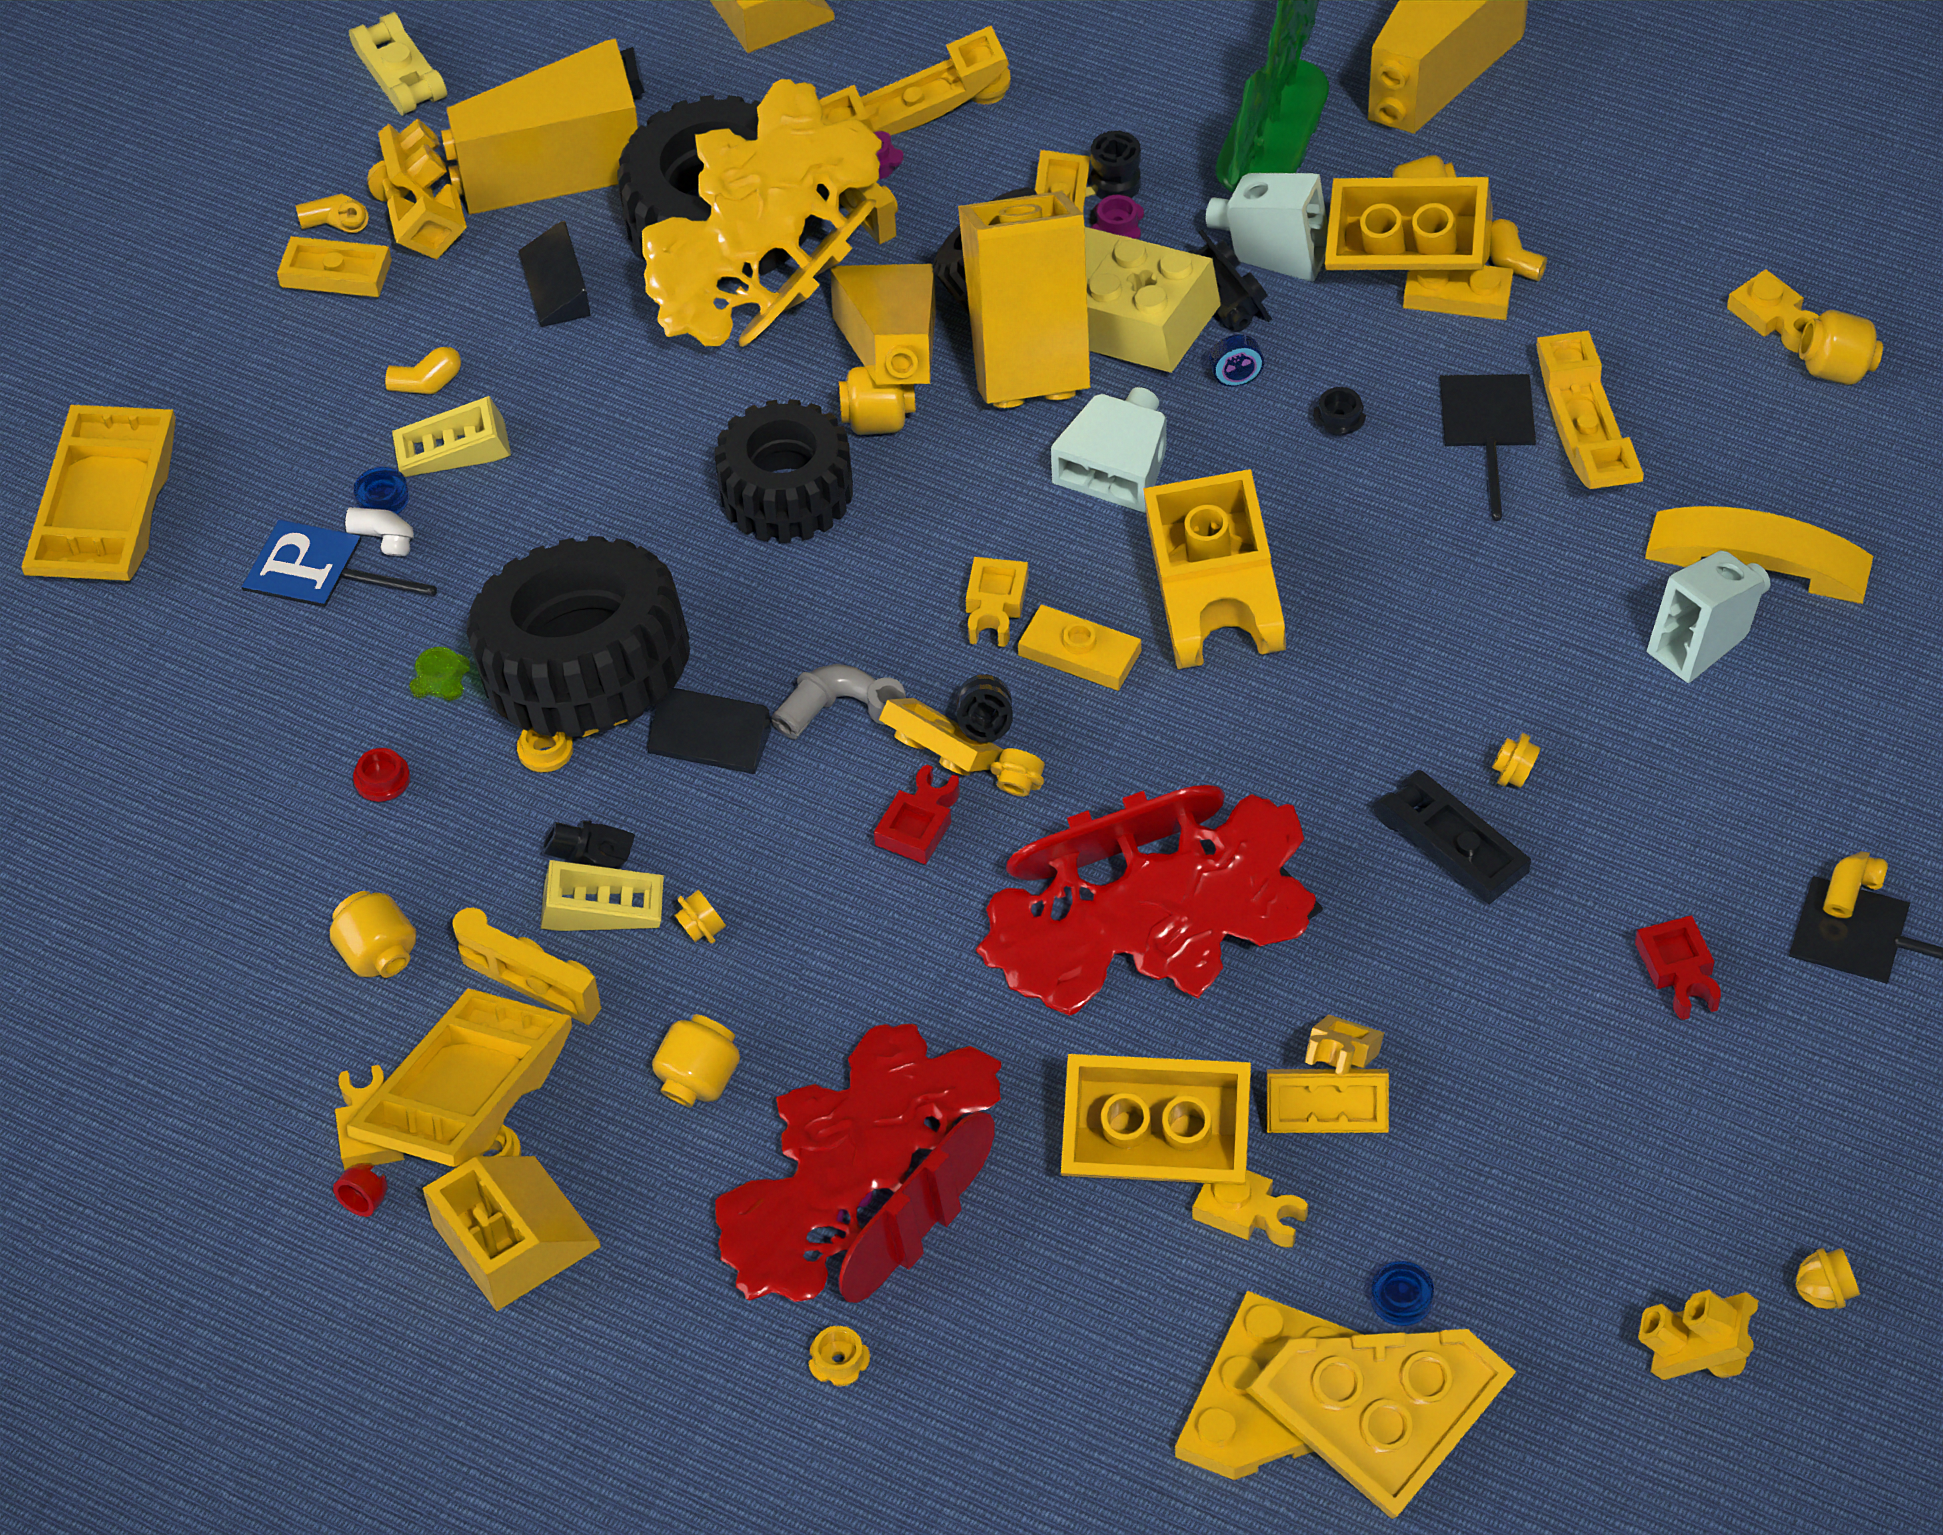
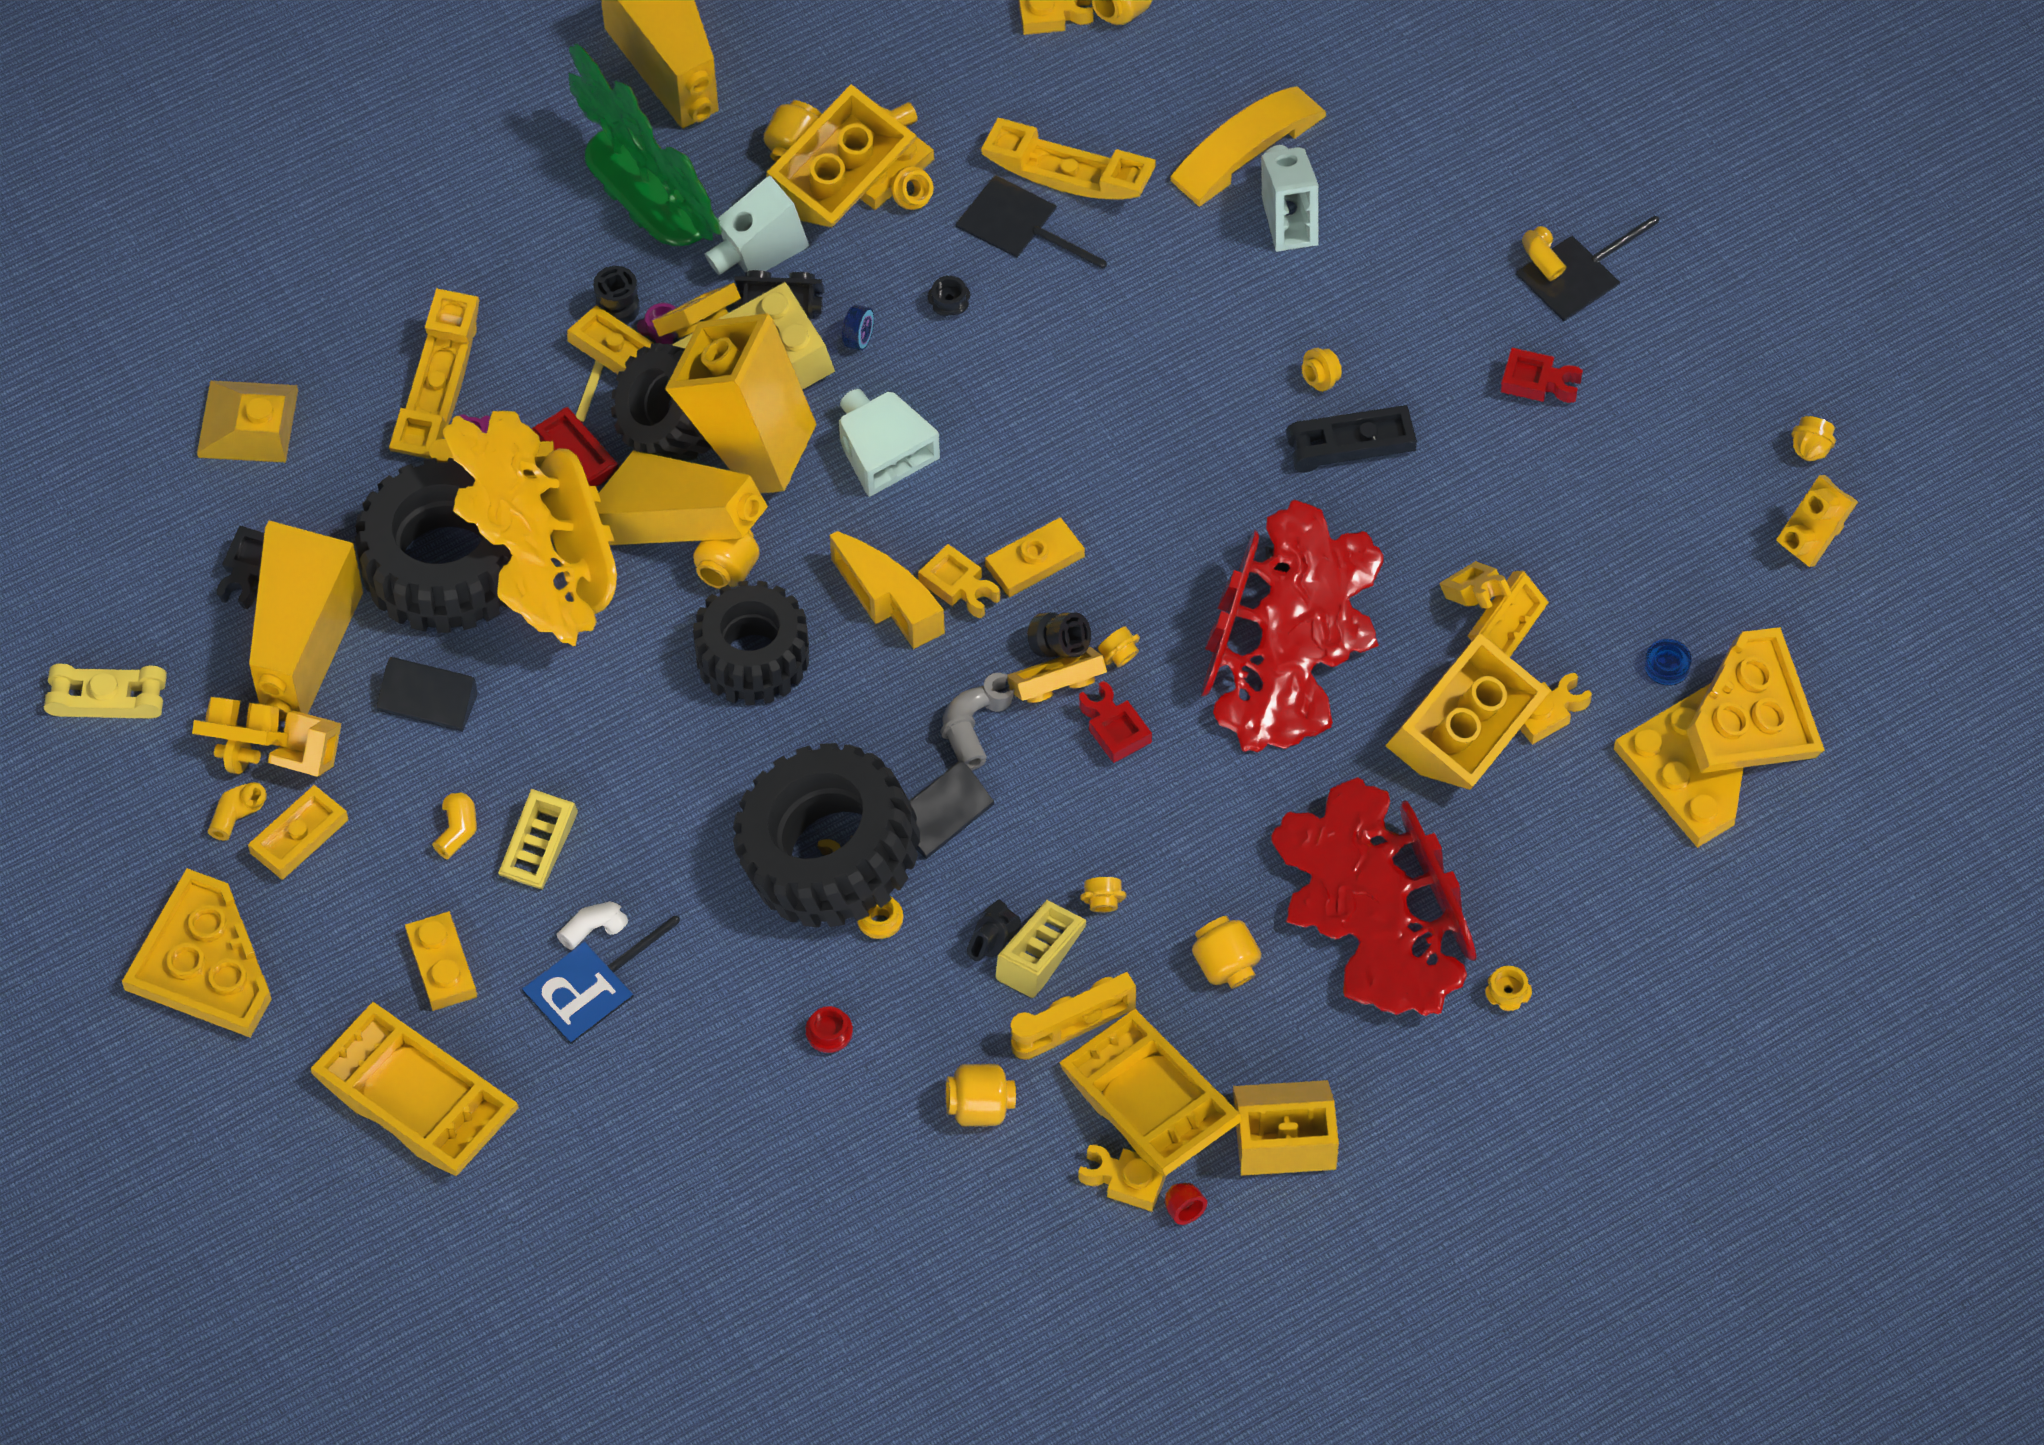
camera: 60 degrees left, 5 degrees up
(152, 273) = (202, 958): none -> yellow plate
(266, 443) = (441, 961): none -> yellow plate
(382, 490) = (551, 908): clear blue tile -> none
(443, 663) = (758, 939): clear neon green plate -> none
(921, 230) = (570, 433): none -> red tile
(933, 549) = (887, 589): none -> yellow slope
(1119, 218) = (706, 307): none -> yellow plate
(1213, 563) = (1041, 439): yellow brick -> none
(1427, 311) = (922, 188): none -> yellow plate

